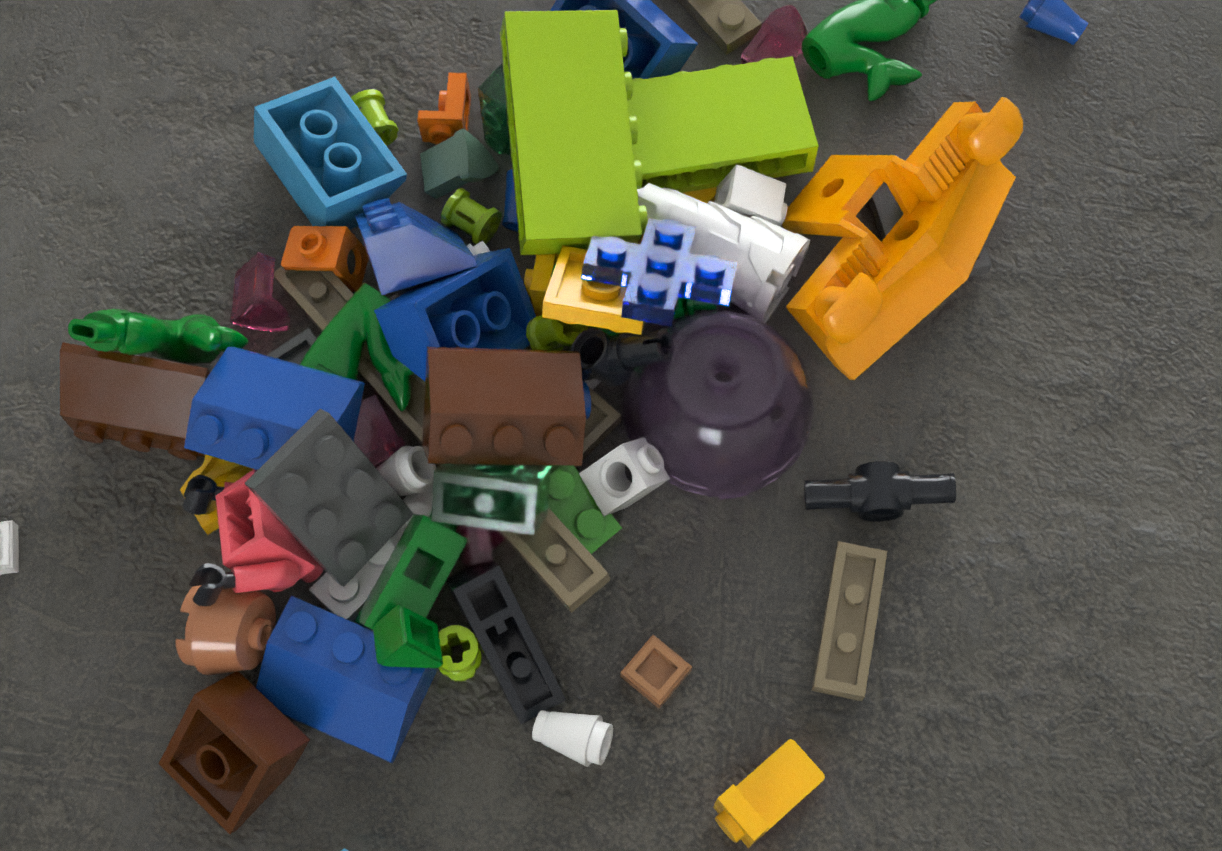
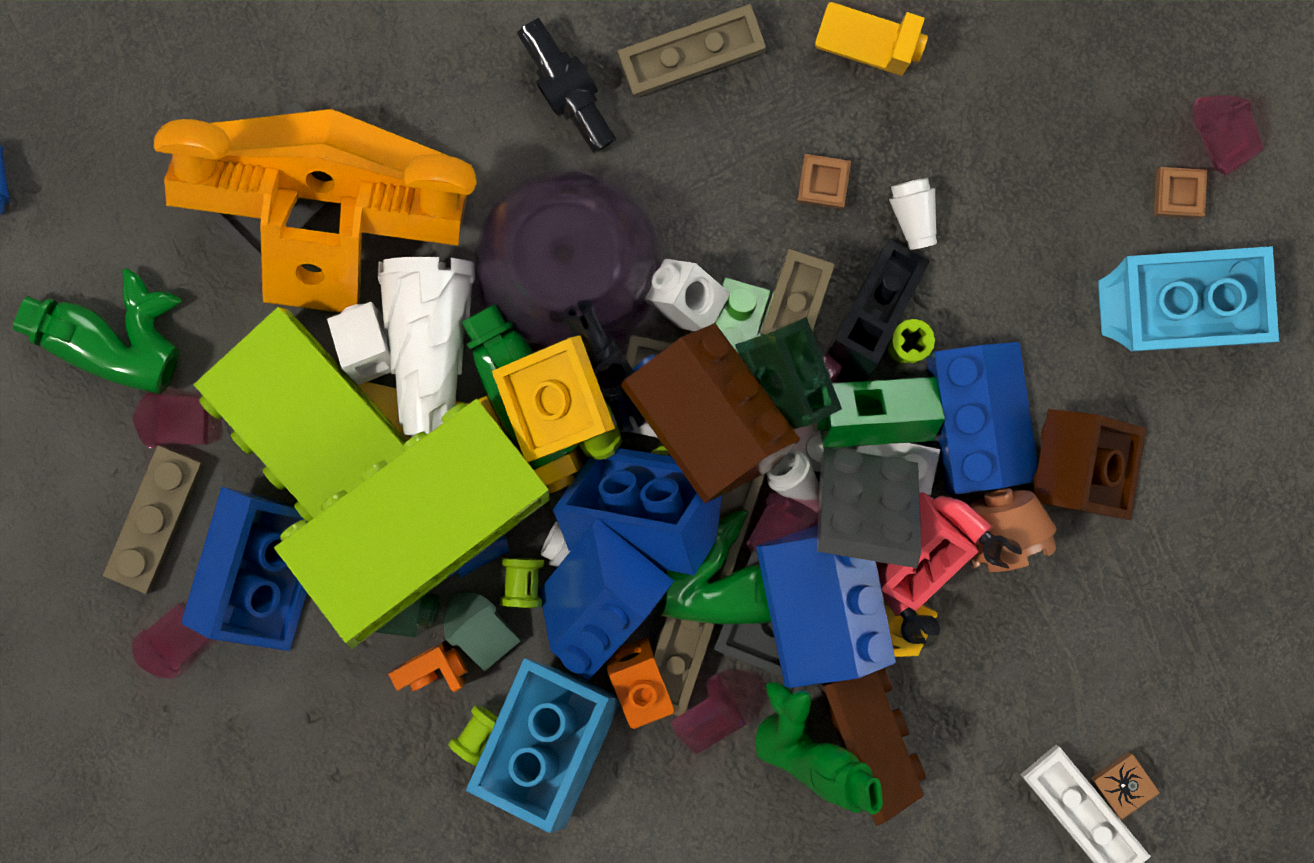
camera: 125 degrees left, 20 degrees up
(407, 640) = (937, 375): green slope -> none
(659, 271) = (508, 357): clear blue plate -> none

